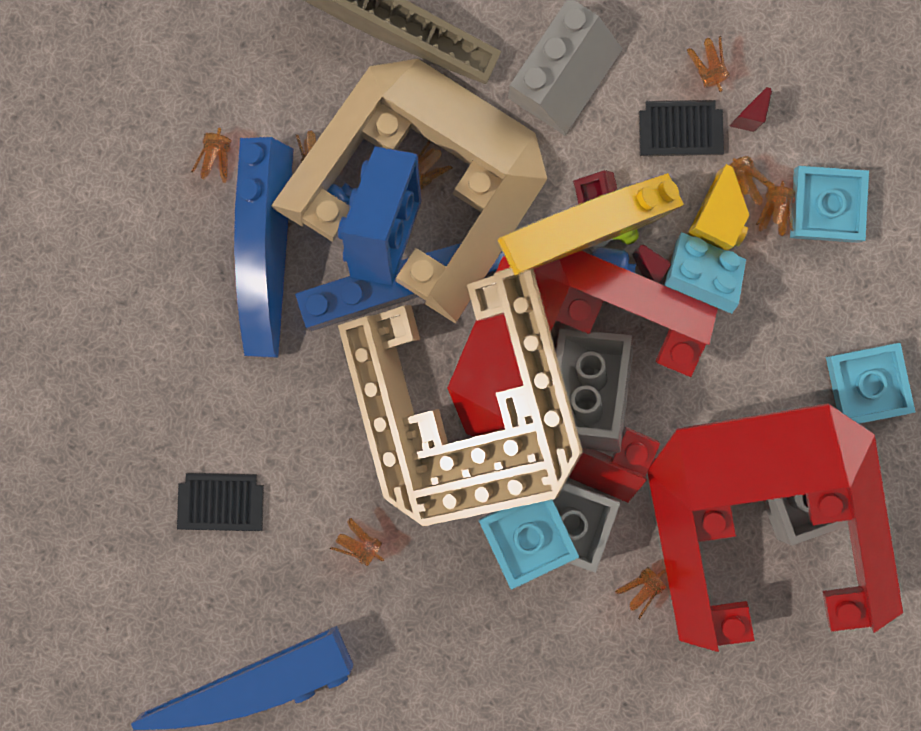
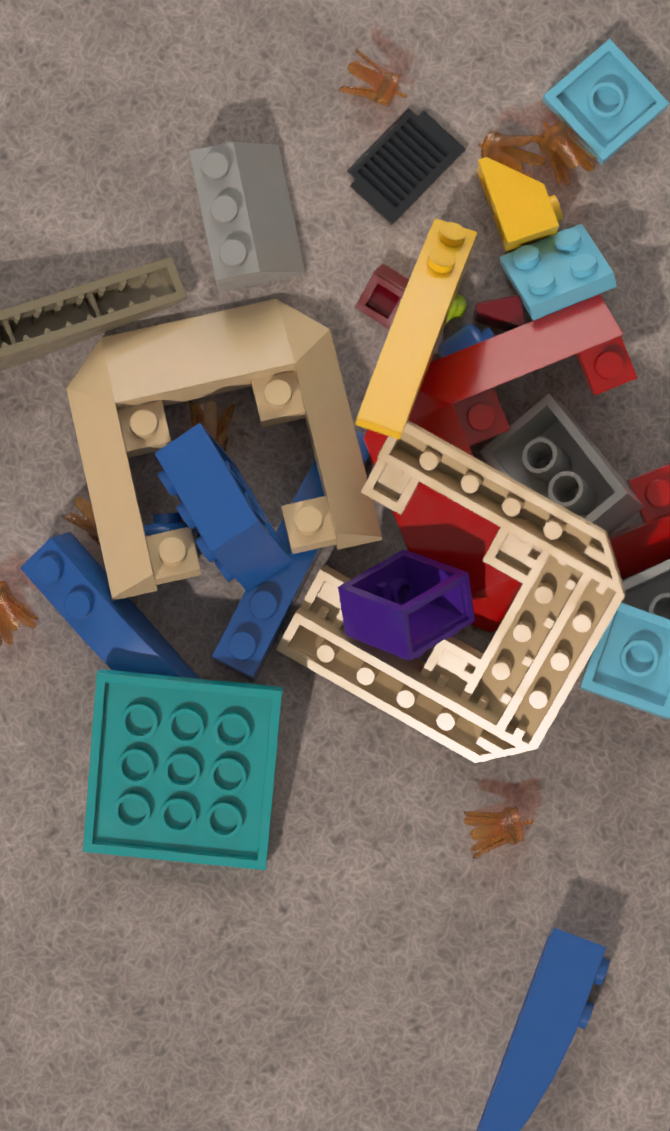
camera: 40 degrees left, 5 degrees down
(219, 338) = (182, 769): none -> teal plate
(220, 502) = (330, 922): black window -> none
(430, 374) = (406, 604): none -> dark purple piece
(755, 113) = (457, 87): dark red slope -> none

